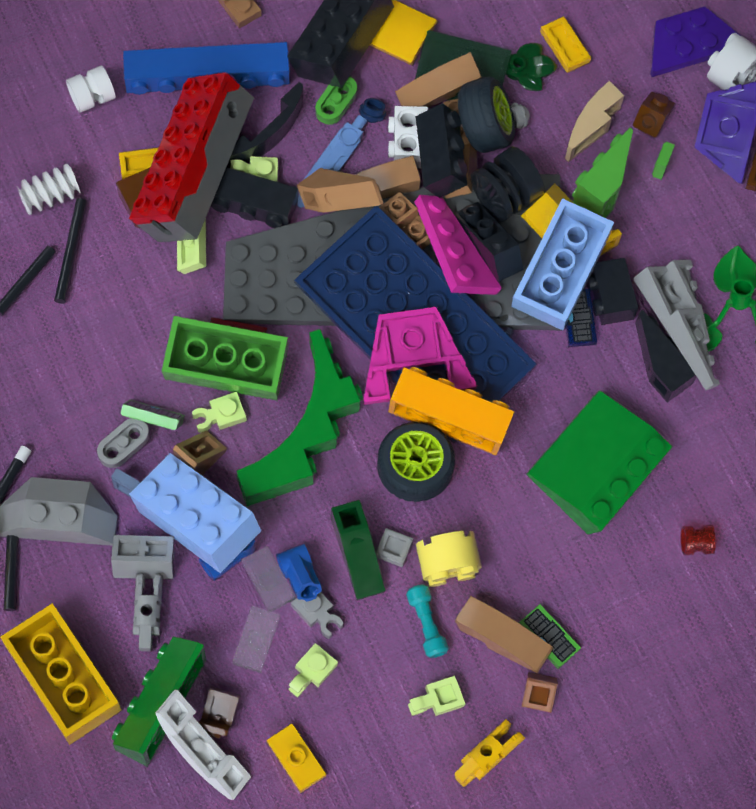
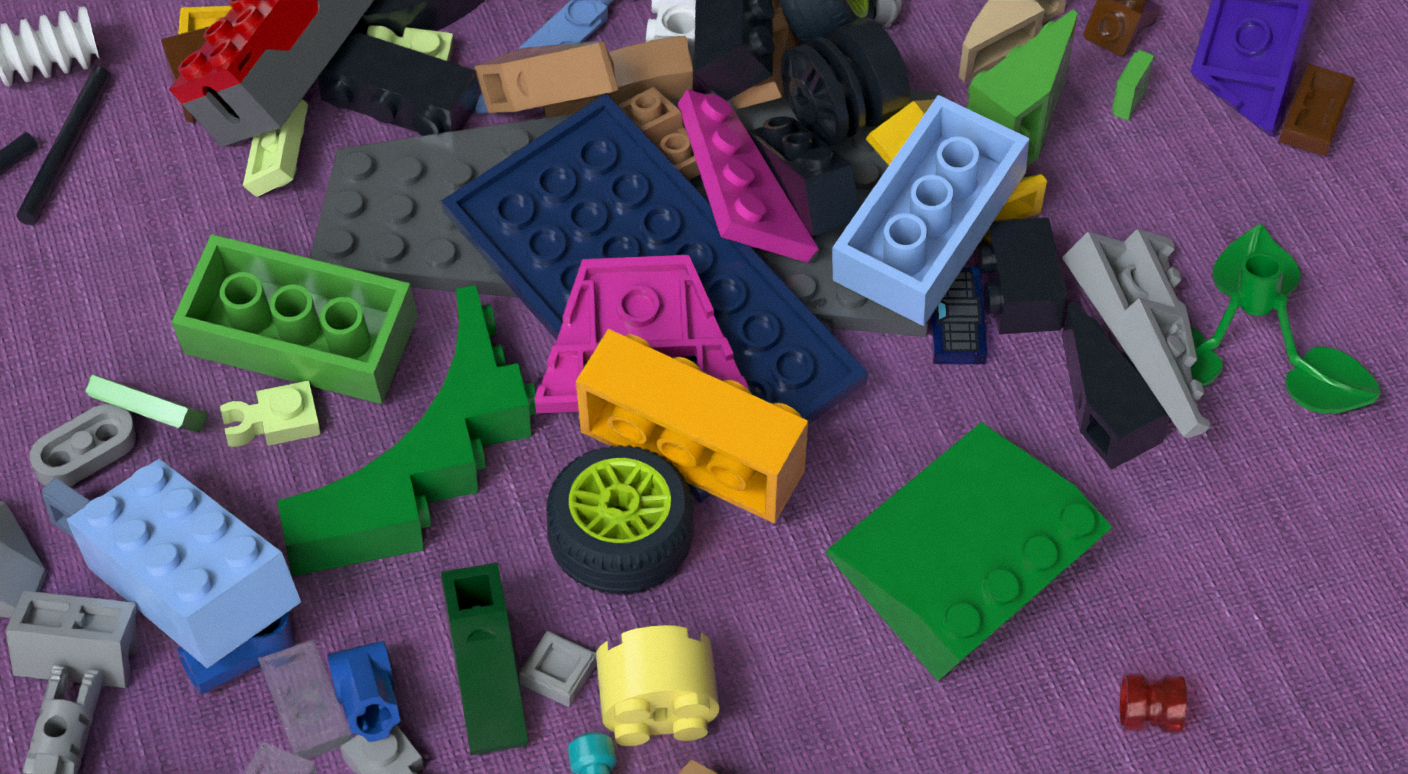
camera: 10 degrees right, 15 degrees down
(199, 451) = (219, 468): medium nougat slope -> none

